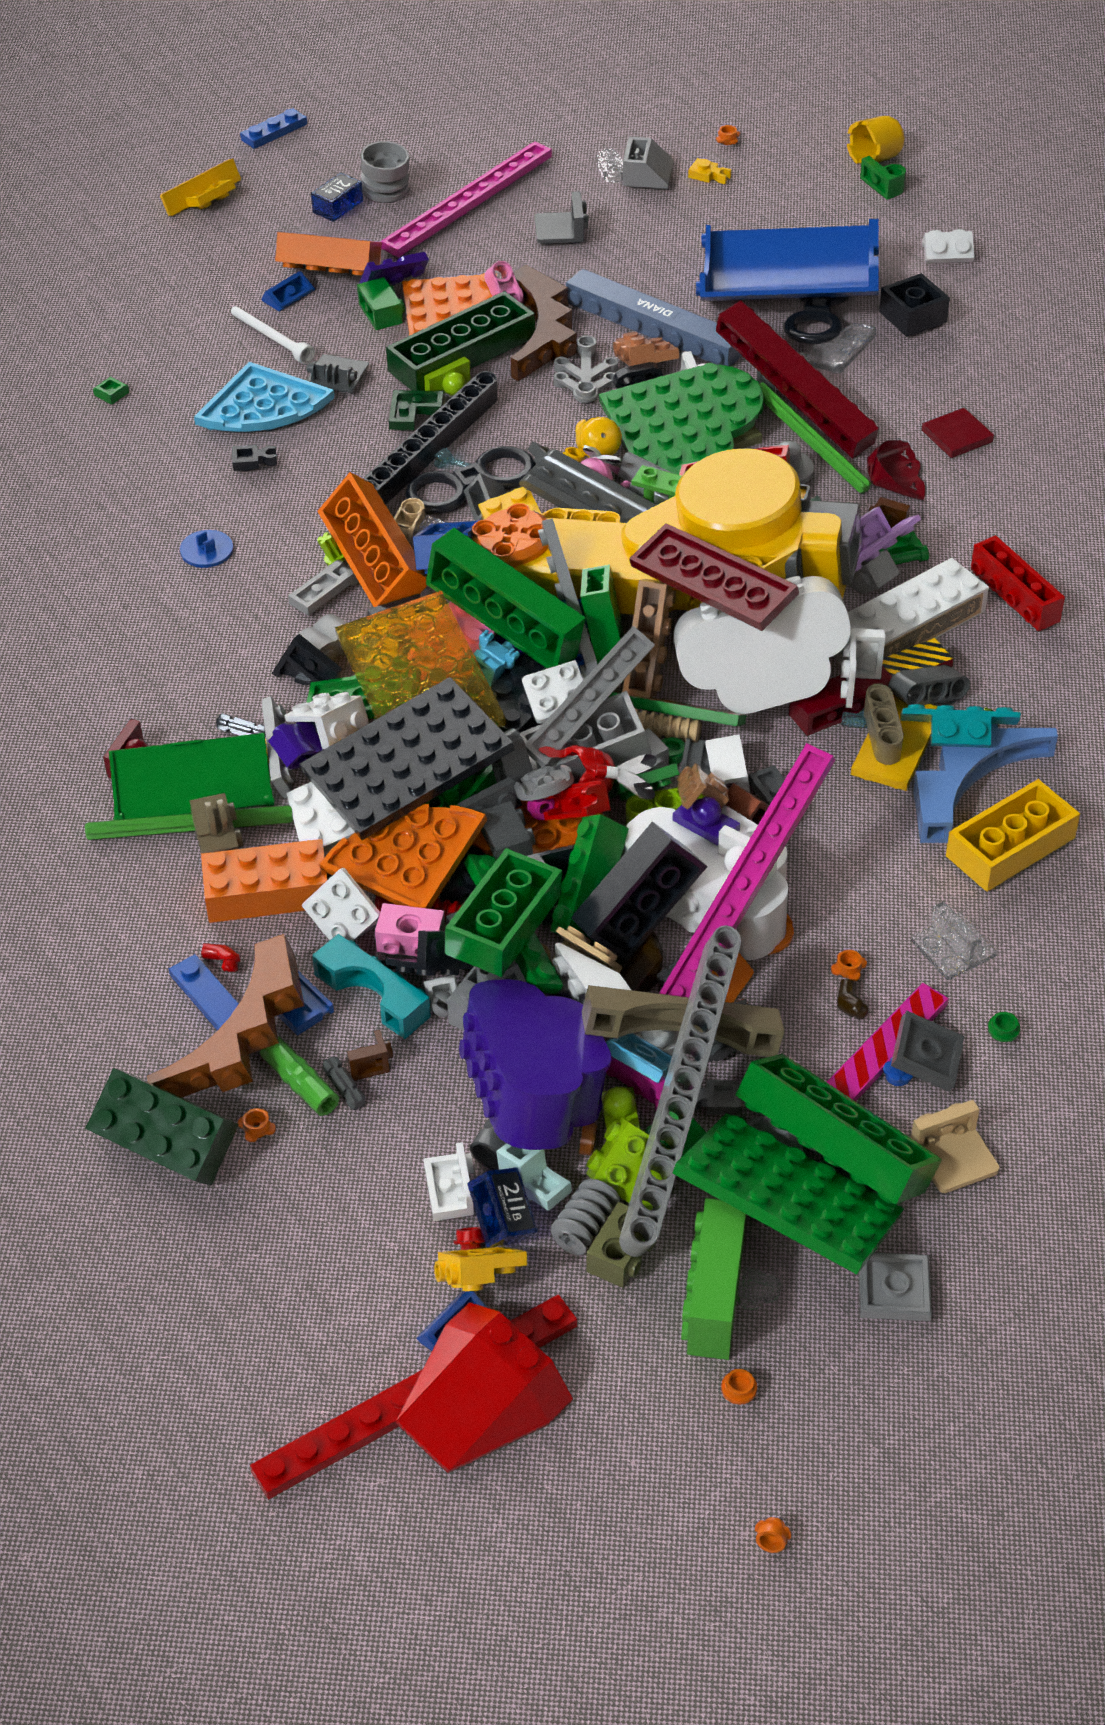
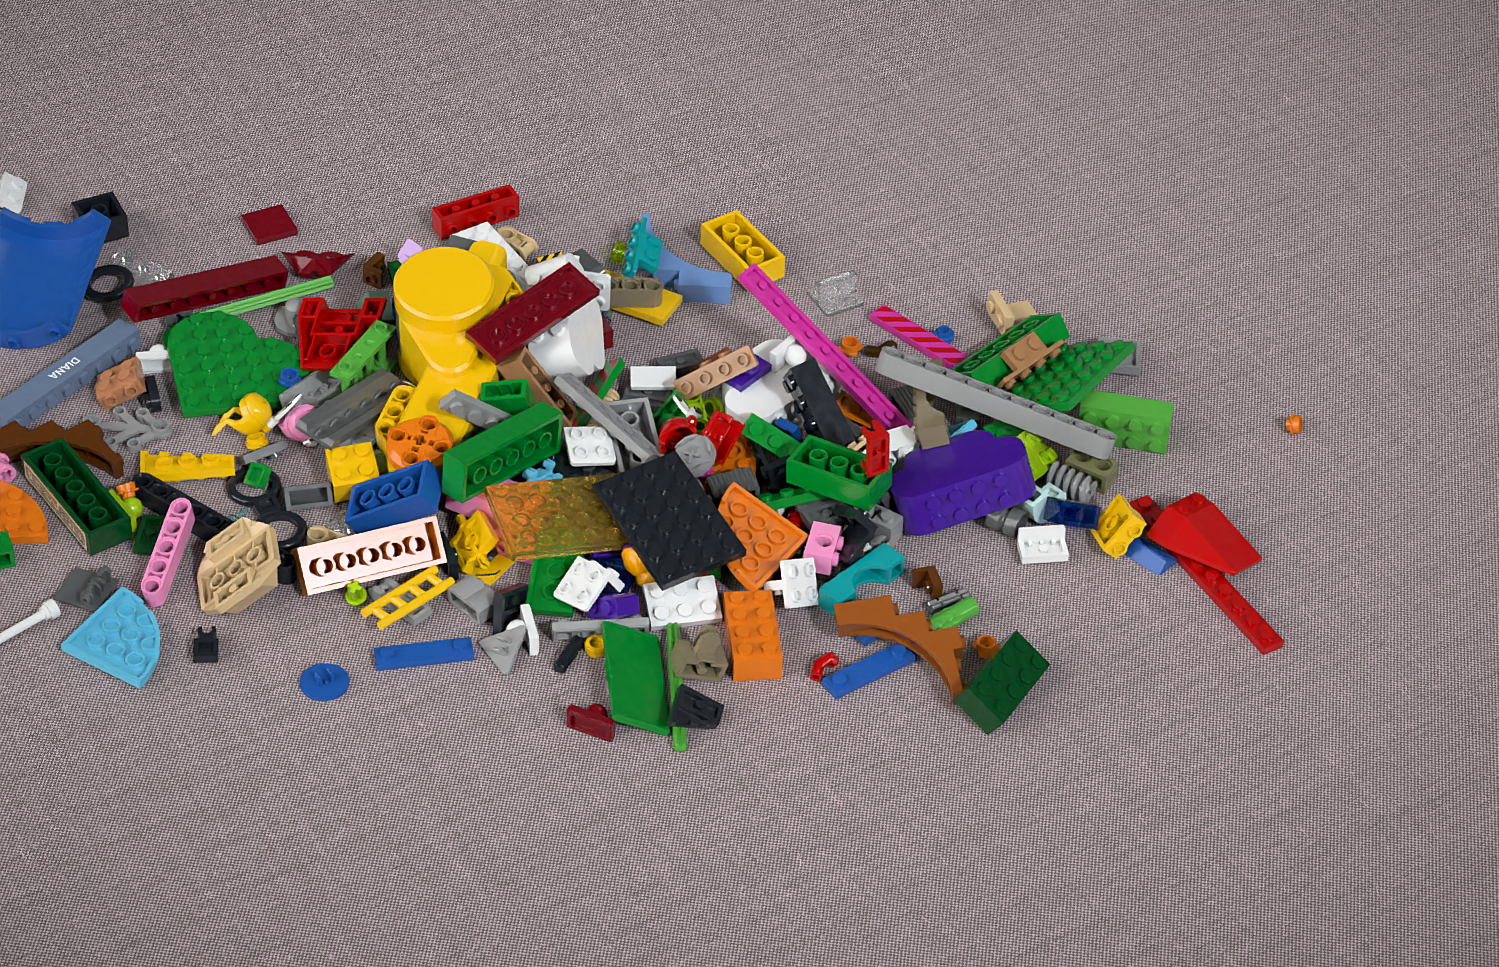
camera: 90 degrees left, 5 degrees down
(111, 390) = (67, 751): green tile -> none
(134, 831) = (694, 710): none -> black wing
(245, 615) = (423, 653): none -> blue plate
(248, 670) = (504, 647): none -> light grey piece
(276, 683) = (531, 635): none -> white tile
(319, 597) = (405, 608): none -> yellow bar
(340, 457) = (238, 567): none -> tan piece
(375, 406) = (167, 552): none -> bright pink beam
(467, 369) = (126, 490): none -> orange plate
(469, 1238) = (1085, 539): red plate -> none
(493, 910) = (876, 450): none -> red hinge
(510, 462) = (257, 475): none -> green plate
(524, 409) = (186, 466): none -> yellow wing
(660, 455) = (289, 377): none -> blue plate
(739, 1386) = (1193, 429): orange plate -> none
(812, 1132) = (1026, 355): none -> medium nougat bracket
(927, 1051) = (934, 315): dark grey plate -> none
(970, 625) = (518, 241): none -> tan piece
(1004, 1027) = (909, 283): green plate -> none

